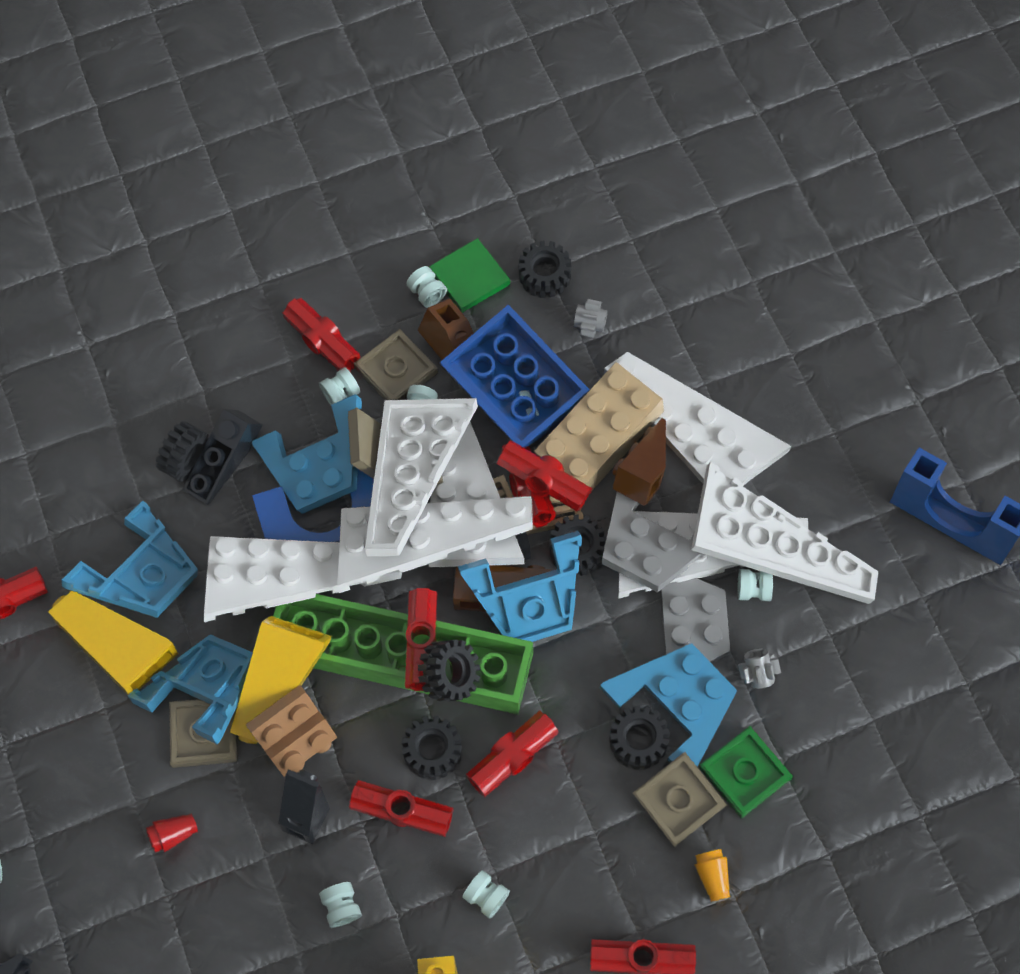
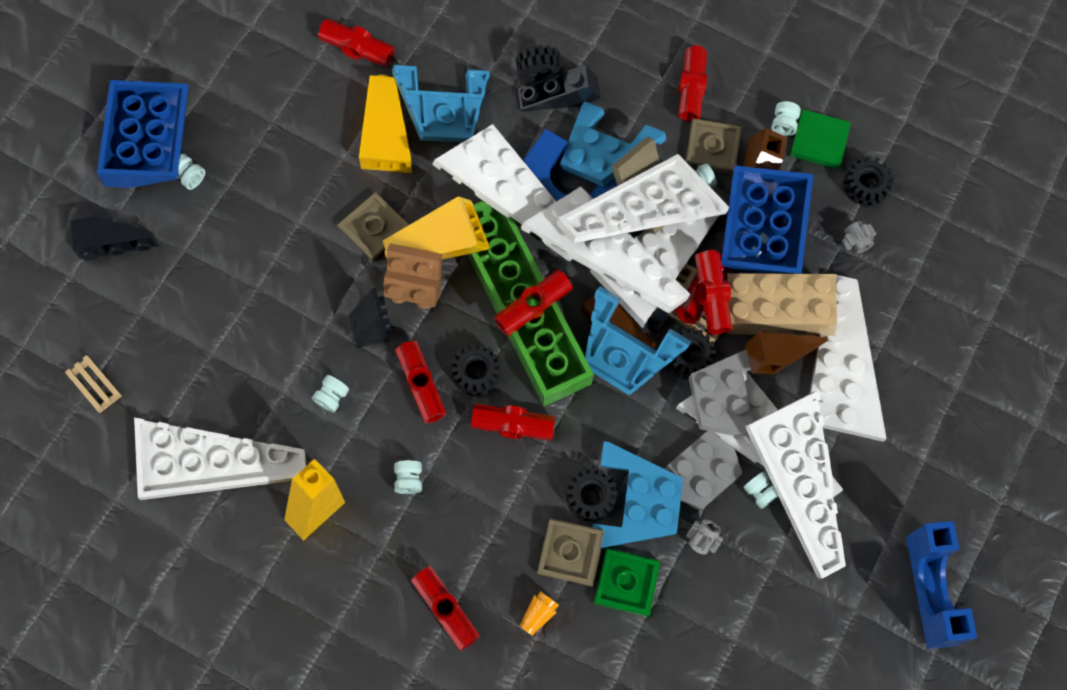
camera: 45 degrees right, 5 degrees up
(171, 831) = (295, 258): red cone -> none
(208, 671) = (408, 198): dark azure wing -> none
(339, 387) = (667, 122): light aqua wheel -> none
(435, 670) = (534, 345): black tyre -> none

